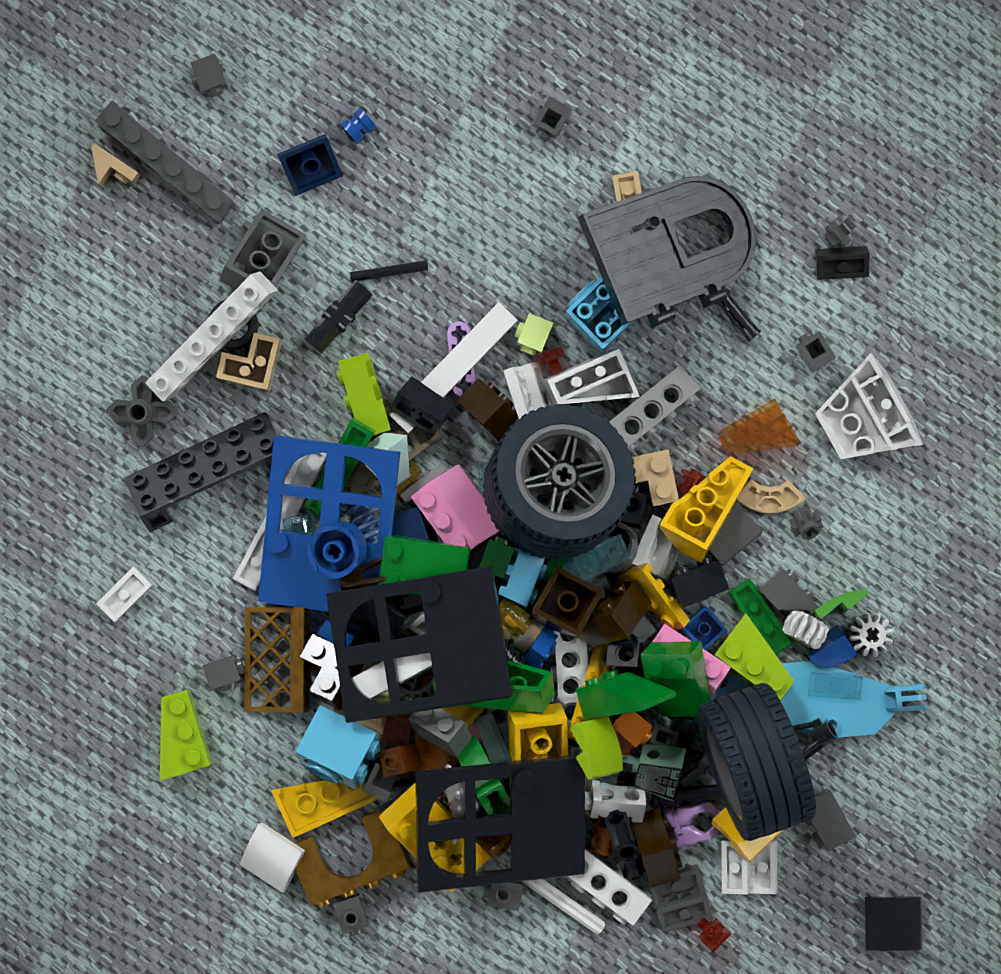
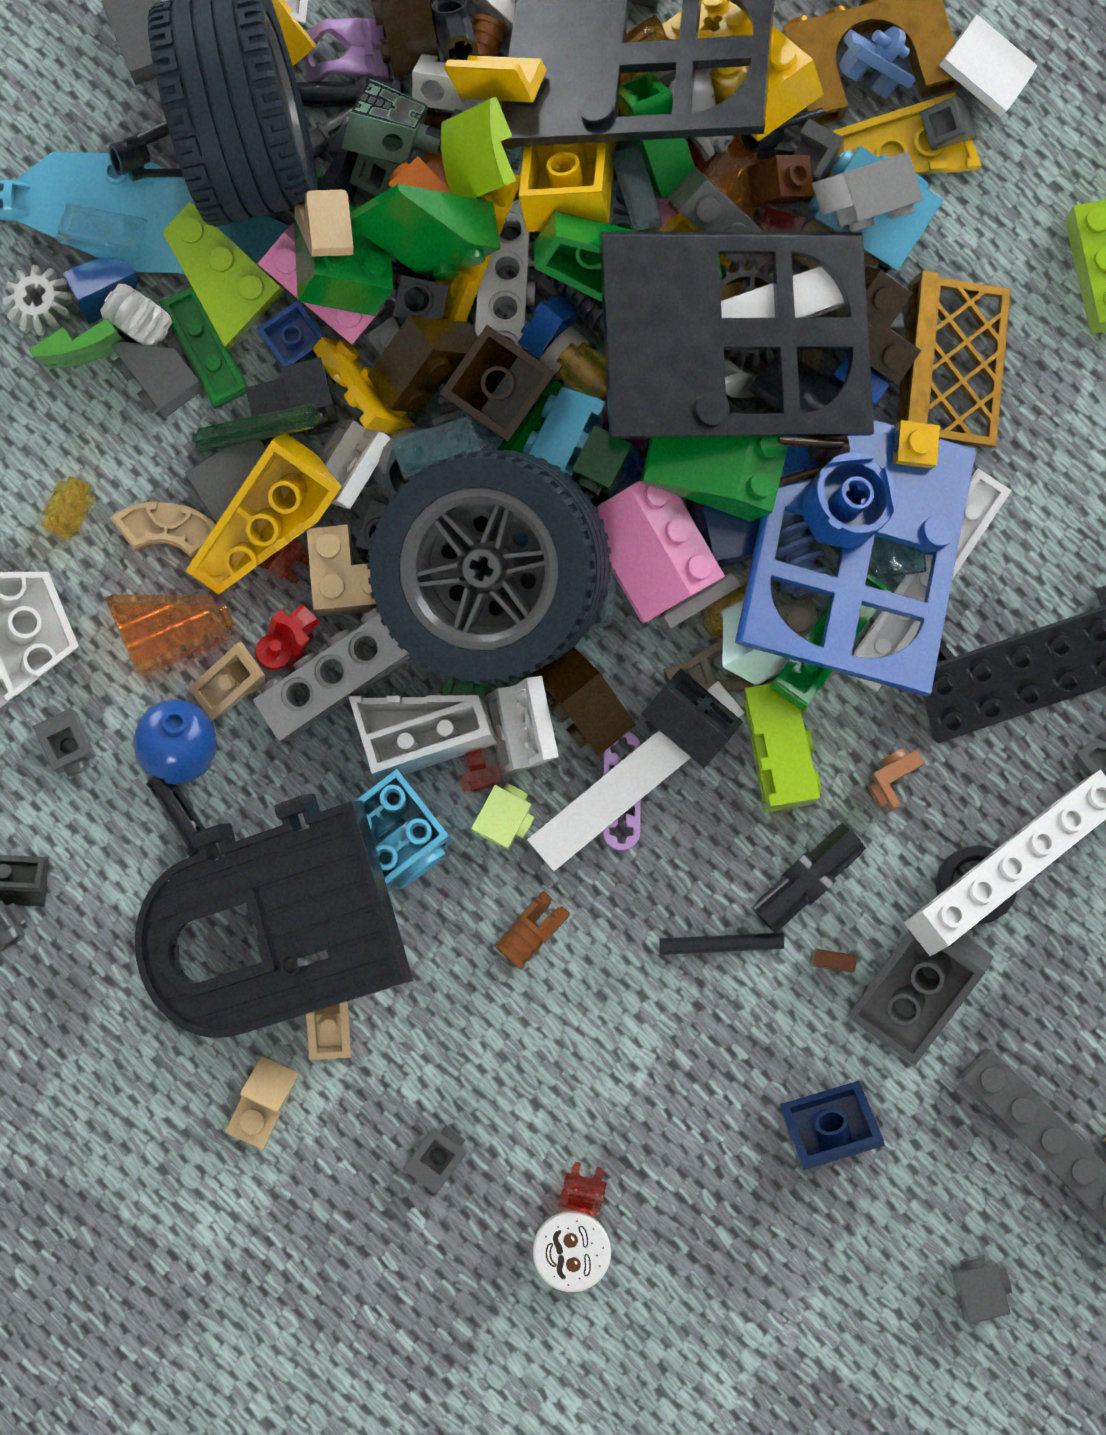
camera: 170 degrees left, 5 degrees down
(224, 673) = (1037, 348): dark grey brick -> none
(257, 369) = (950, 805): tan brick -> none
(290, 392) = (896, 766): none -> nougat bracket
(294, 814) = (948, 123): none -> dark grey slope
(297, 597) = (916, 444): none -> yellow plate
(318, 266) = (833, 960): none -> reddish brown tile
(342, 854) = (883, 57): none -> medium blue hips
(344, 747) = (870, 191): none -> light grey hinge
(358, 126) = (747, 1181): blue wheel -> none
(459, 108) = (582, 1192): none -> clear red tile
(462, 72) = (571, 1251): none -> white head
(512, 260) = (524, 937): none -> dark orange hinge
(589, 800) = (496, 77): none -> yellow panel
(663, 142) = (262, 1102): none -> tan slope
(683, 428) = (286, 639): none -> red hips
(687, 687) = (326, 222): none -> tan slope
(717, 399) = (228, 682): none -> tan slope
(718, 560) = (256, 428): none -> clear green axle
(745, 358) = (175, 741): none -> blue cylinder
(806, 523) = (114, 478): dark grey gear -> none
(833, 501) = (67, 507): none -> clear yellow brick

